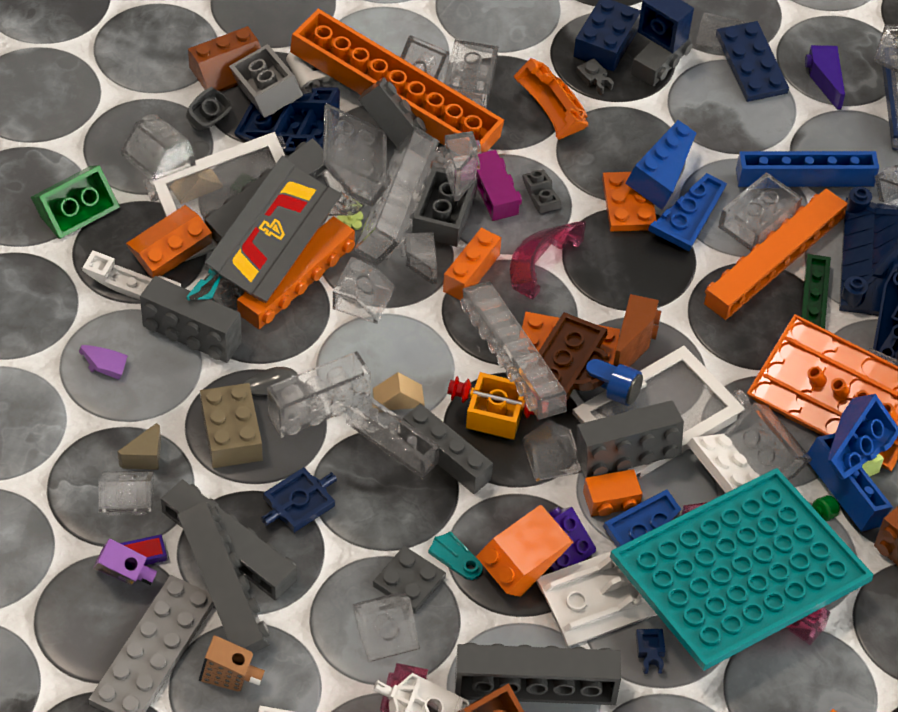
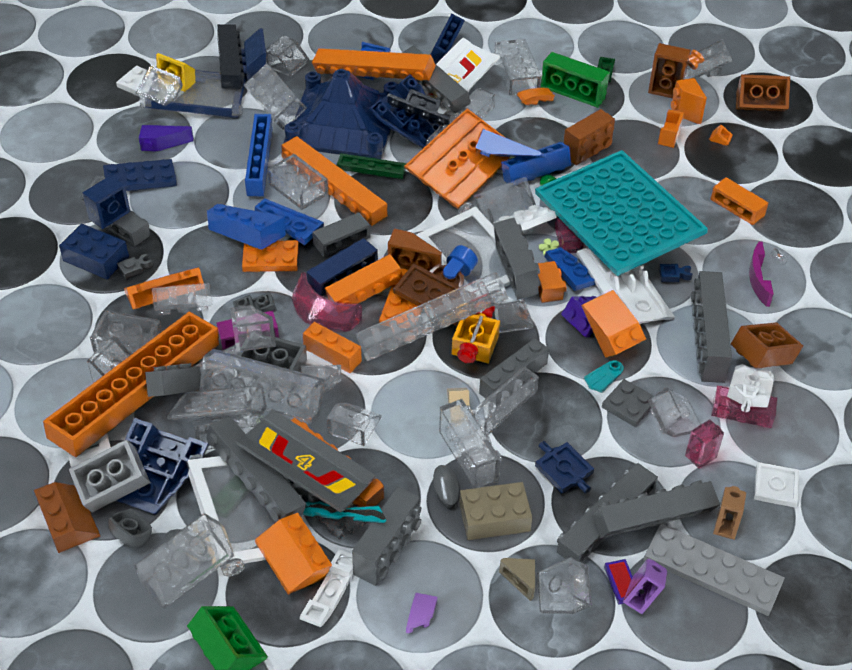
camera: 85 degrees left, 5 degrees down
(327, 643) = (704, 443): none -> clear pink brick
(537, 118) = (182, 298): none -> clear brick
(578, 288) = (365, 282): none -> orange brick
(611, 267) = (341, 265): none -> dark blue brick
(672, 266) = (341, 234): none -> dark grey brick
(687, 499) = (548, 245): none -> yellowish green plant

